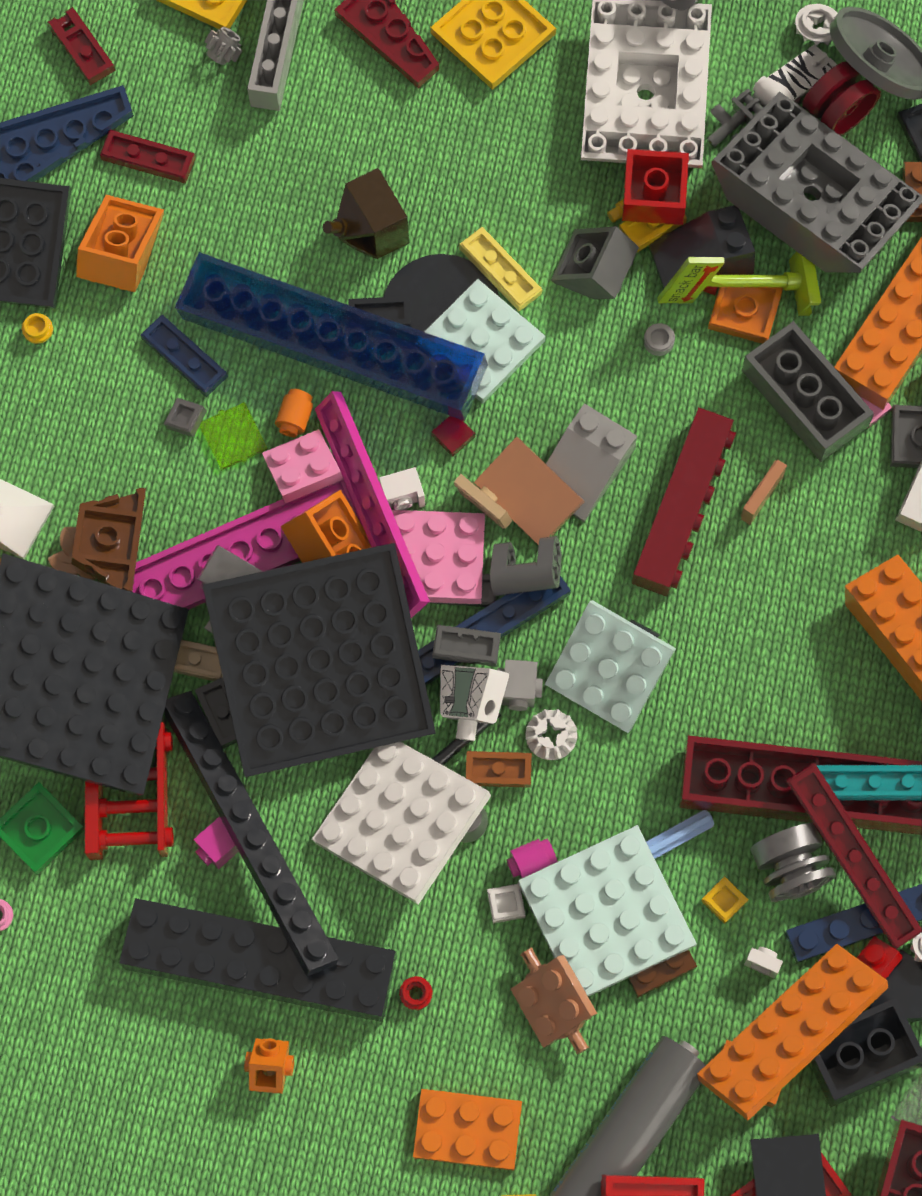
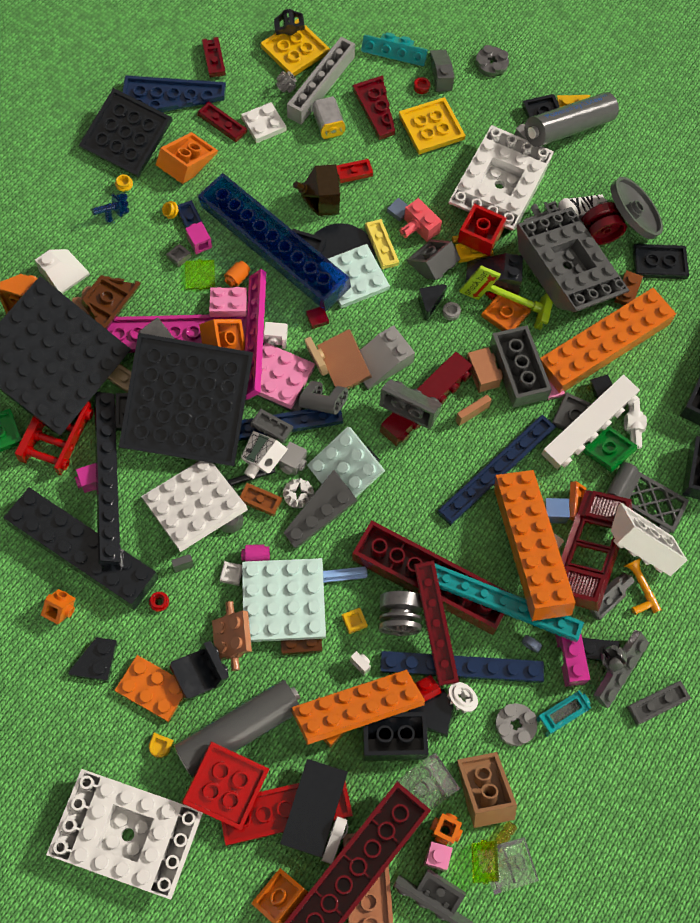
camera: 15 degrees right, 5 degrees down
(48, 370) = (118, 204): none -> arm
(136, 345) = (170, 209): none -> yellow plate
(206, 377) = (198, 237): none -> dark pink brick
(216, 131) = (263, 122): none -> white plate
(321, 83) = (328, 117): none -> flat silver piece
(362, 1123) = (96, 660): none -> black wing
(404, 158) = (354, 171): none -> red plate
(425, 919) = (182, 563): none -> dark grey tile
(502, 198) = (397, 209): none -> sand blue tile
(530, 1075) = (199, 671): none -> black bracket
(548, 205) = (421, 220): none -> coral brick
(603, 744) = (324, 507): none -> dark grey wing
(617, 334) = (430, 298): none -> black slope
(669, 524) = (410, 403): none -> dark grey slope
(754, 418) = (484, 369): none -> nougat brick
(814, 15) = (602, 180): white gear -> none
(836, 573) = (501, 464): none -> dark blue tile

